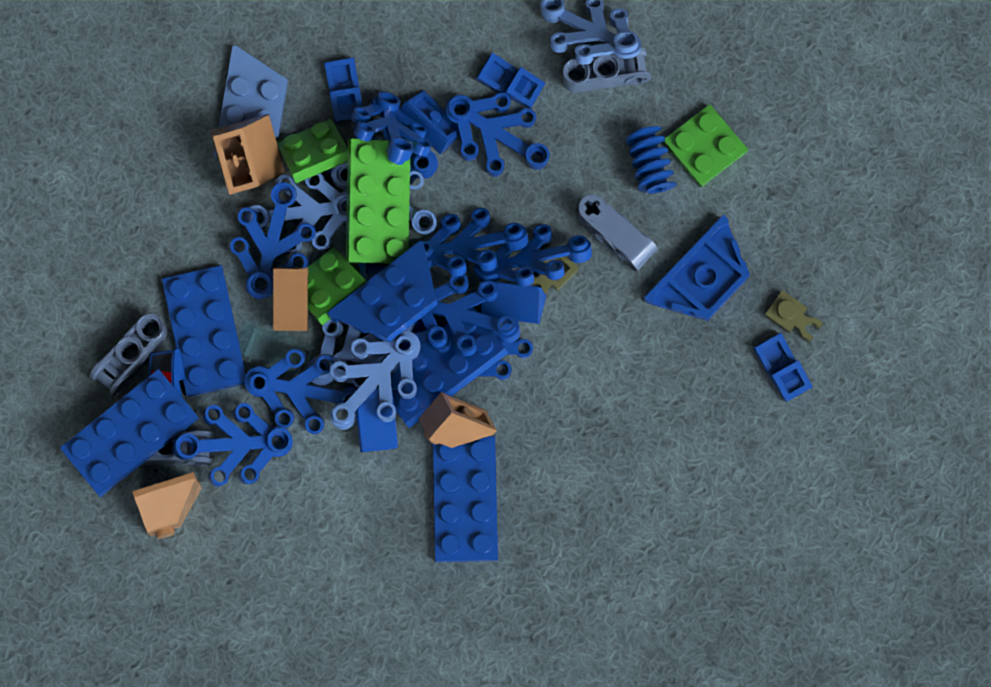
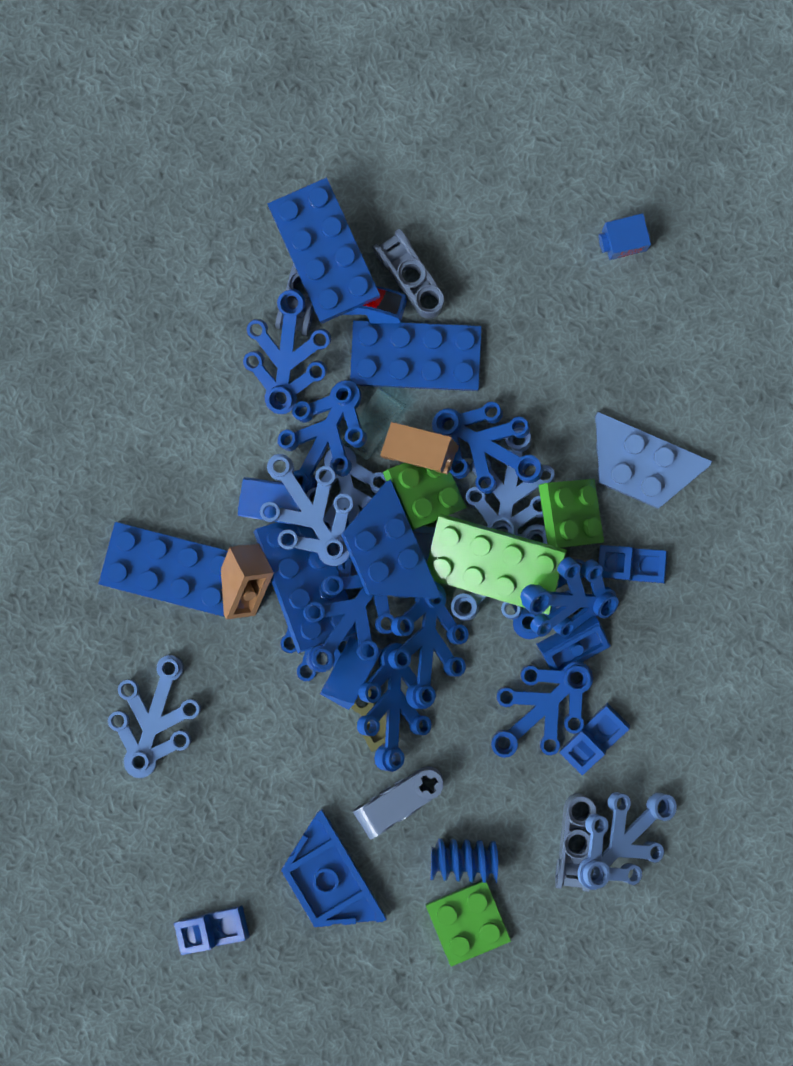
camera: 110 degrees right, 10 degrees up
(46, 172) = (624, 237): none -> blue brick
(167, 504) = (242, 269): medium nougat slope -> none
(247, 153) = (586, 444): medium nougat slope -> none
(610, 473) = (152, 721): none -> medium blue plant
(789, 314) = (264, 954): olive plate -> none

